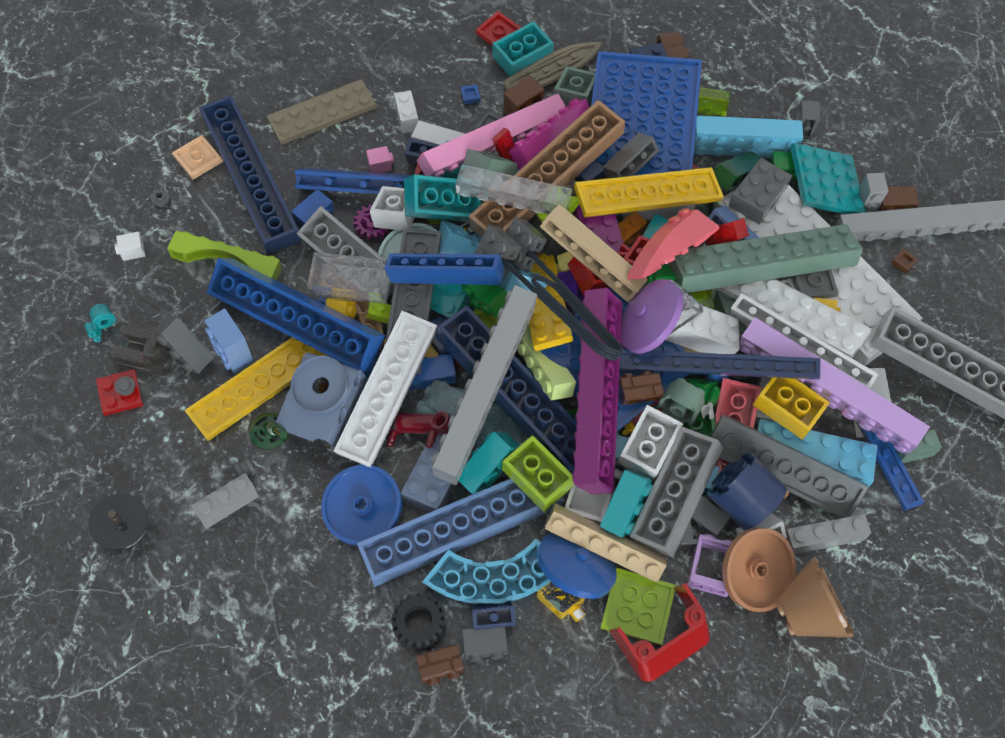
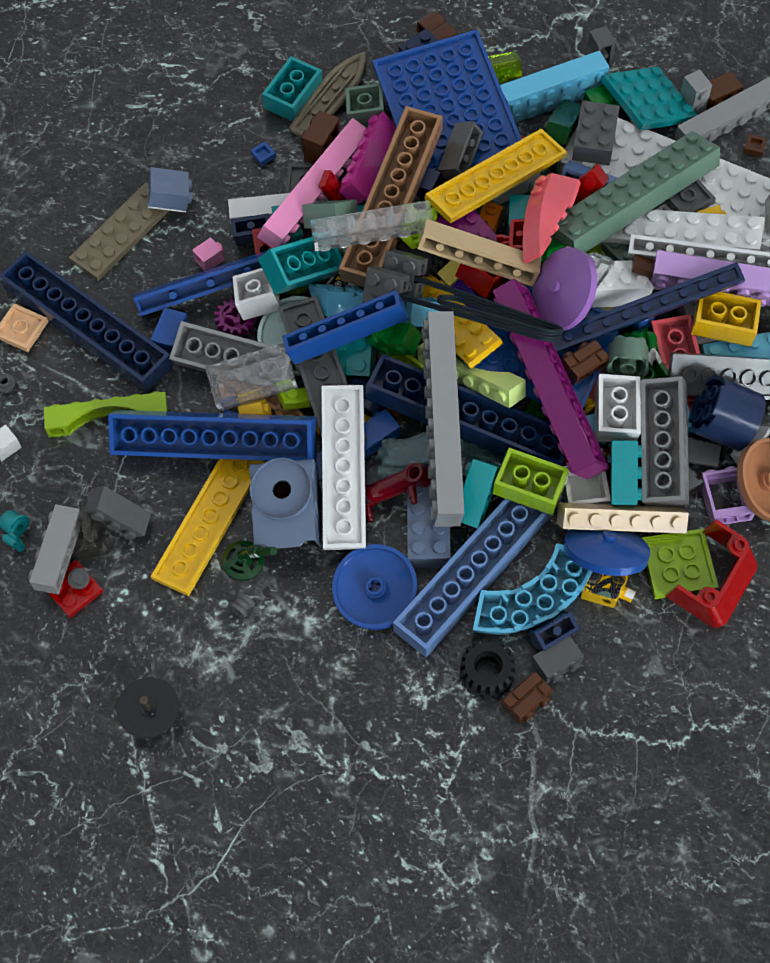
camera: 20 degrees left, 0 degrees up
(116, 353) = (56, 549): none -> light grey brick
(225, 501) = (240, 643): light grey brick -> none
(228, 342) = (162, 490): medium blue brick -> none
(374, 92) = (169, 189): none -> sand blue piece
(406, 111) = (209, 196): white brick -> none
(496, 28) = (255, 78): red plate -> none
(737, 325) = (642, 265): none -> reddish brown tile

